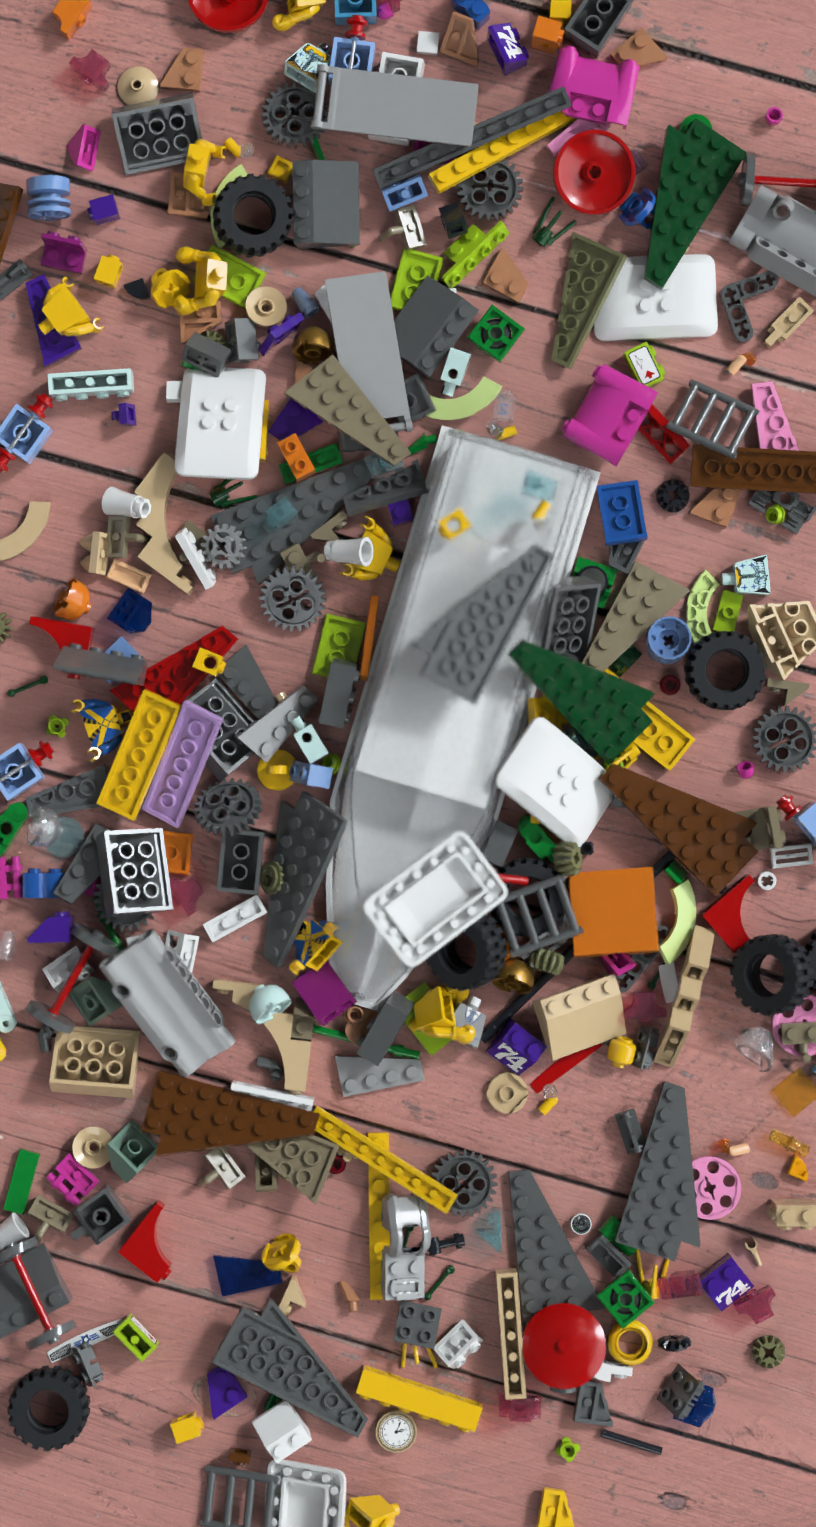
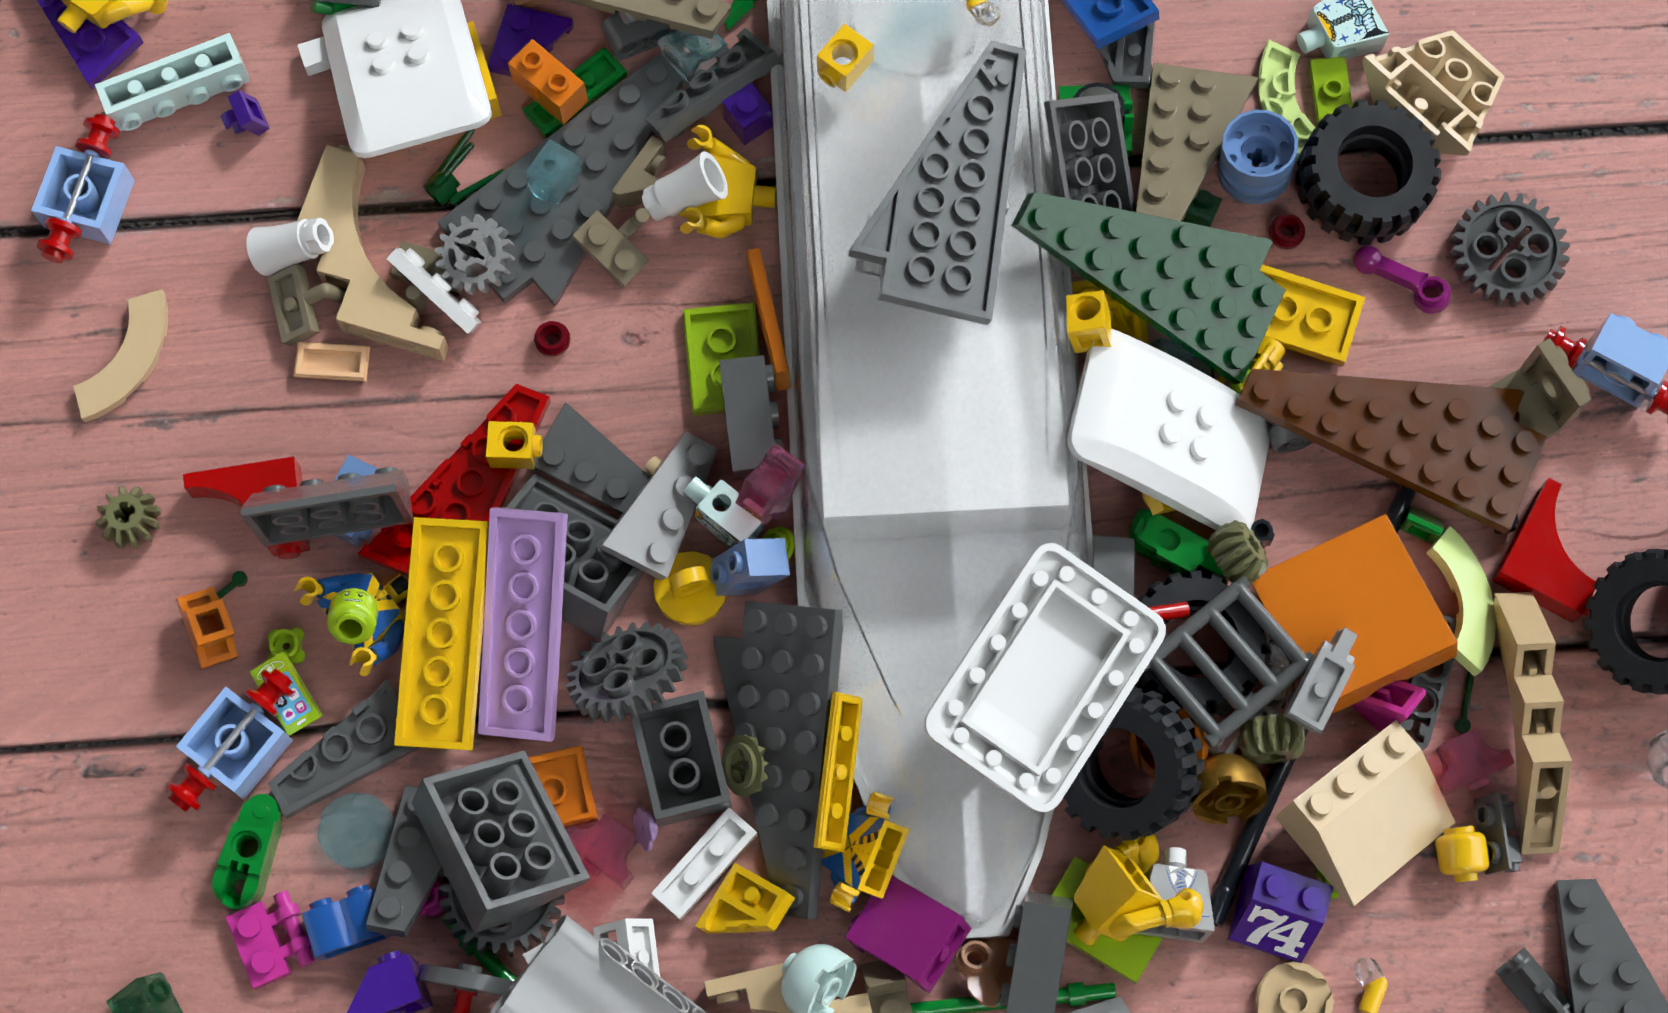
camera: 20 degrees left, 15 degrees down
(19, 703) = (208, 627): none -> orange brick
(44, 827) = (315, 818): clear cylinder -> none
(56, 764) = (293, 711): none -> tile
(73, 600) = (250, 428): orange cylinder -> none
(95, 730) = (352, 616): none -> lime head
(96, 562) = (262, 329): tan tile -> none
(132, 612) = (356, 415): clear blue slope -> none
(211, 888) = (645, 828): none -> lavender plant
(244, 602) = (548, 329): none -> dark red plate
(248, 947) = (745, 905): none -> yellow wing
(283, 582) = (594, 276): dark grey gear -> none
(317, 901) = (838, 772): none -> yellow slope
(334, 740) = (771, 485): none -> clear pink brick
(526, 719) = (1083, 331): none -> yellow brick
(561, 1067) = (1370, 920): red sticker -> none
(581, 945) = (1323, 682): none -> light grey hinge
(668, 981) = (1489, 709): white sticker -> none
(708, 716) = (1370, 261): none -> magenta piece
(745, 769) = (1466, 320): dark pink hinge -> none
(767, 886) = (1587, 476): white bush -> none
(773, 858) = (1574, 444): white tile -> none
(792, 689) = (1479, 168): dark tan slope -> none

